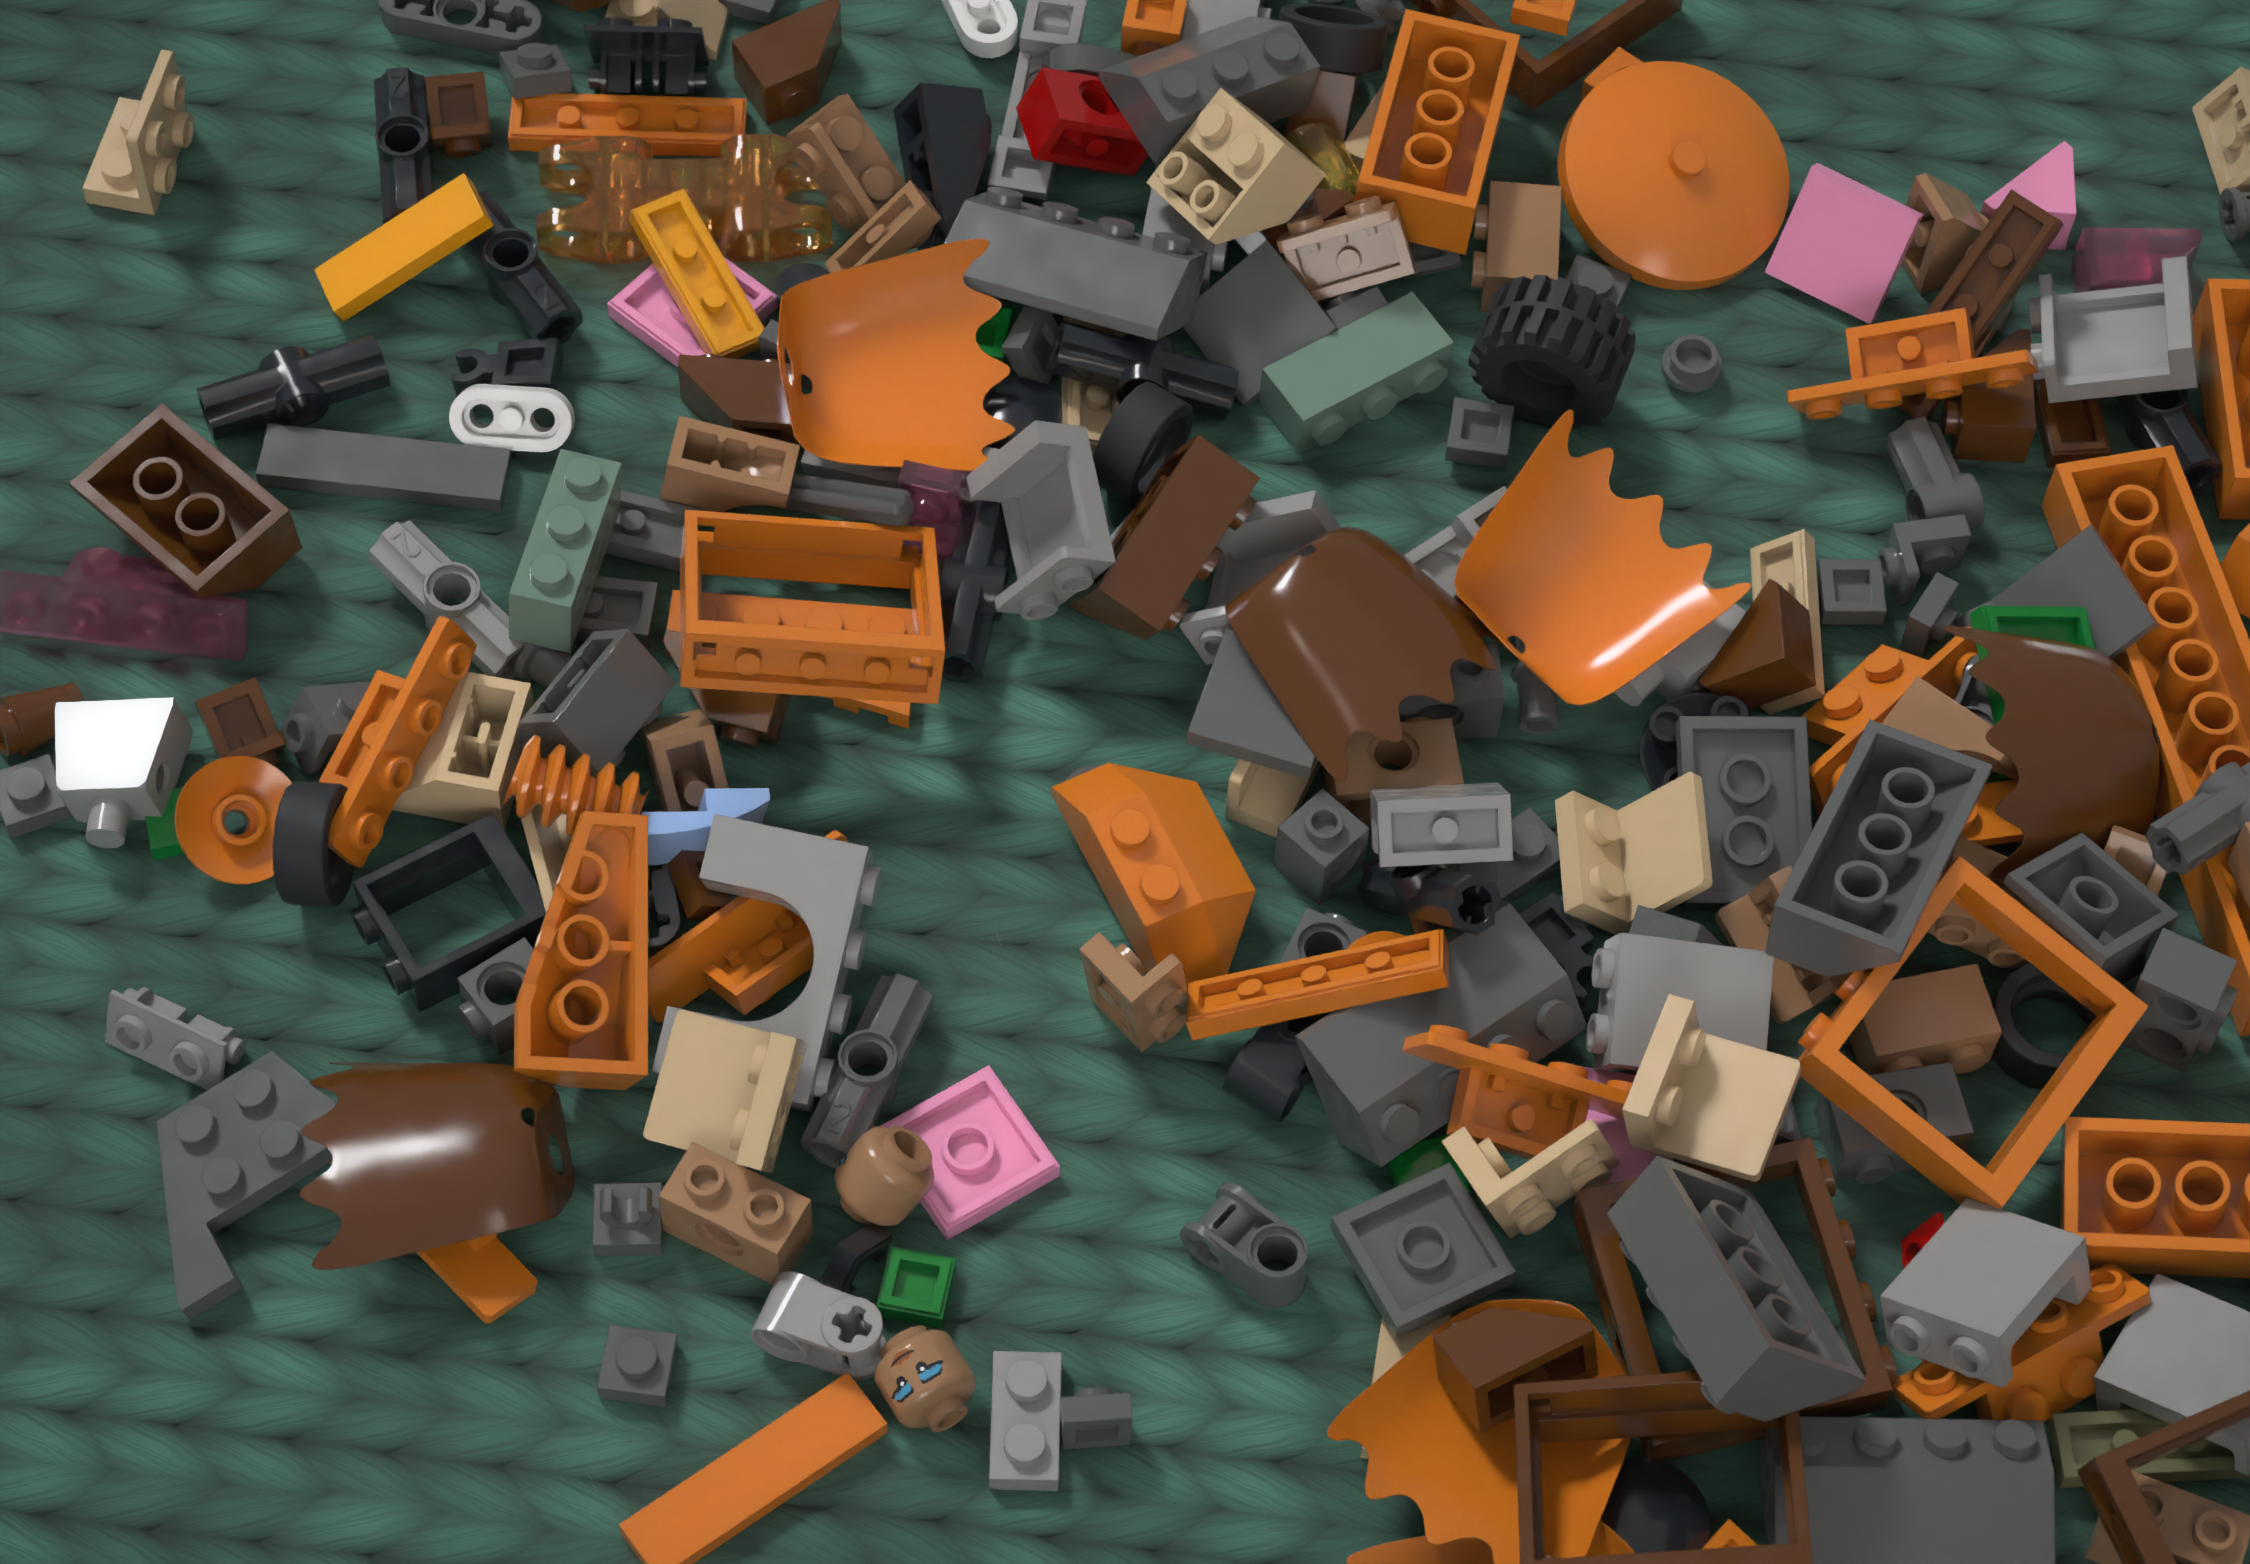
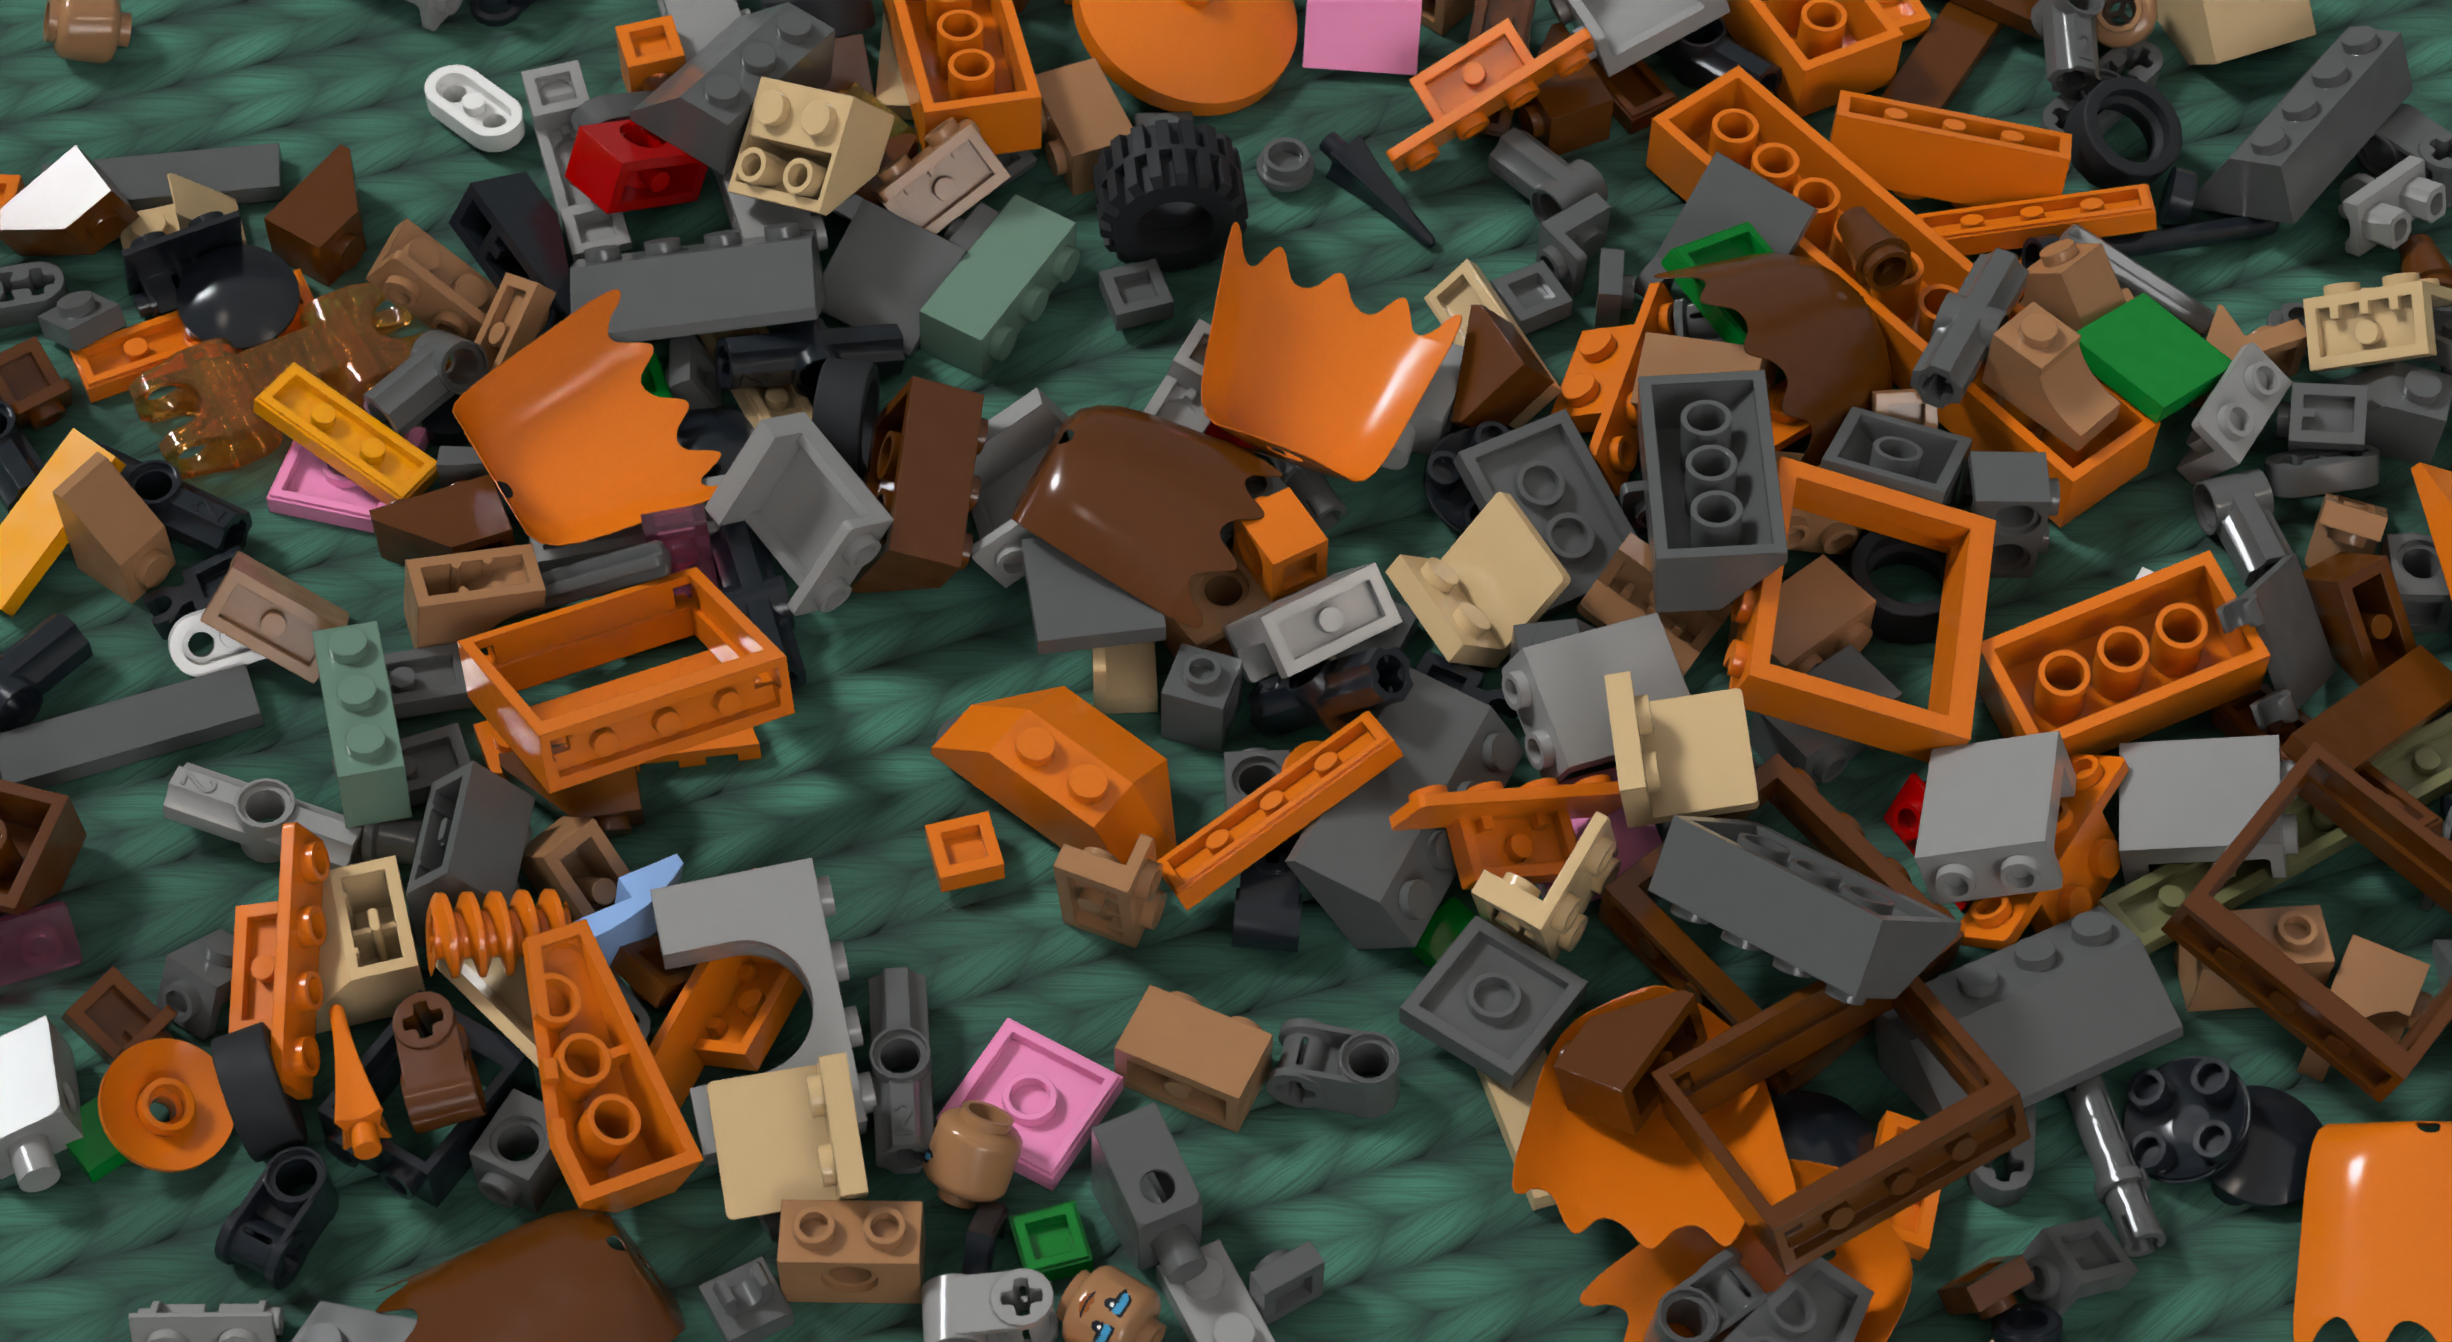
camera: 25 degrees left, 5 degrees down
(279, 965) = (276, 1229): none -> black piece
(383, 891) = (356, 1102): none -> orange piece
(456, 280) = (113, 530): none -> medium nougat slope
(464, 888) = (437, 1069): none -> reddish brown piece
(551, 411) = (271, 615): none -> medium nougat panel
(675, 105) = (238, 296): none -> black dish
(787, 255) = (422, 380): none -> dark grey piece
(1012, 1285) = (1148, 1193): none -> dark grey torso
(1033, 895) = (964, 851): none -> orange plate
(1130, 1176) = (1194, 1057): none -> medium nougat brick
(1461, 736) = (1283, 547): none -> orange brick
(1758, 401) = (1359, 173): none -> black piece
(2190, 687) = (1874, 250): none -> reddish brown cone

